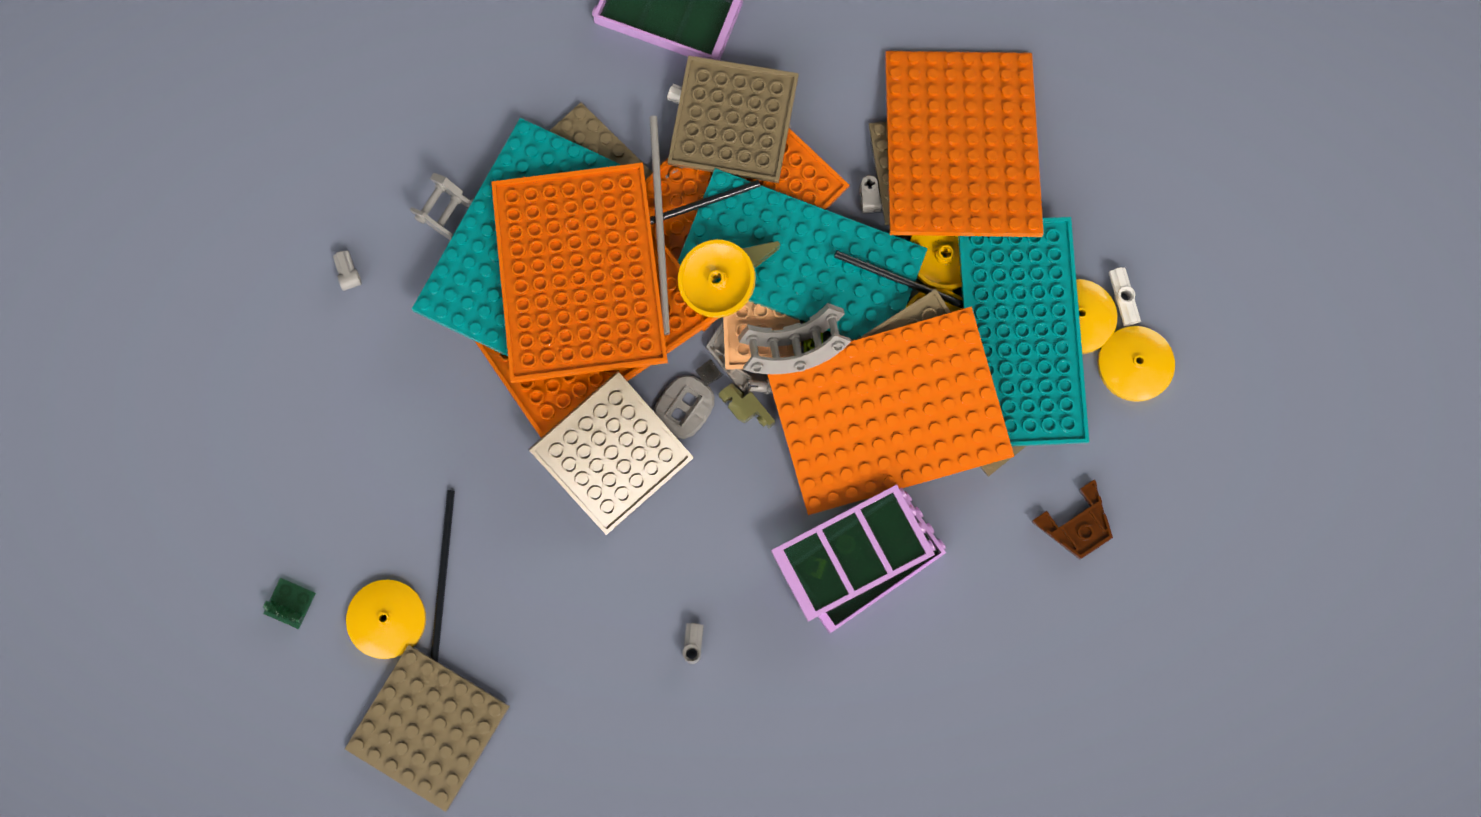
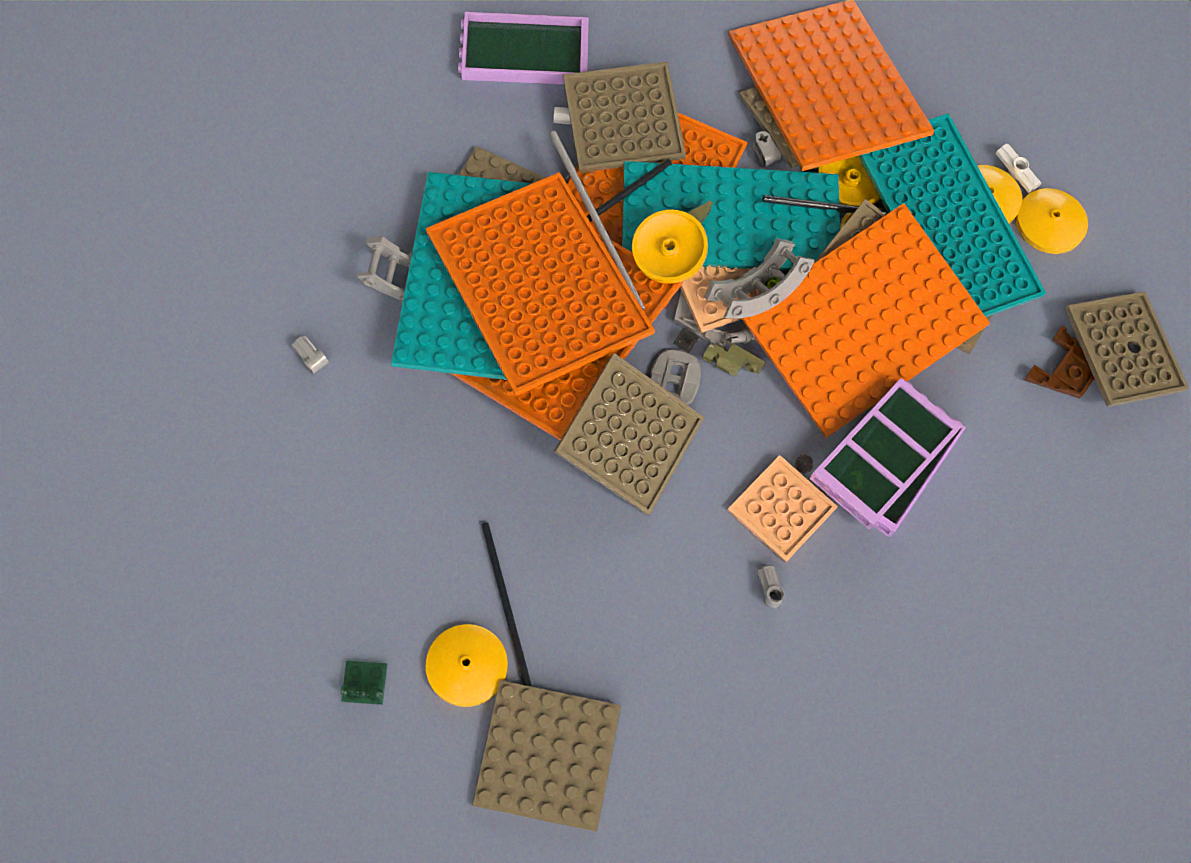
camera: 25 degrees left, 10 degrees down
(735, 571) = (782, 508): none -> light nougat plate
(774, 534) = (800, 463): none -> clear smoke plate
(1128, 505) = (1103, 334): none -> dark tan plate

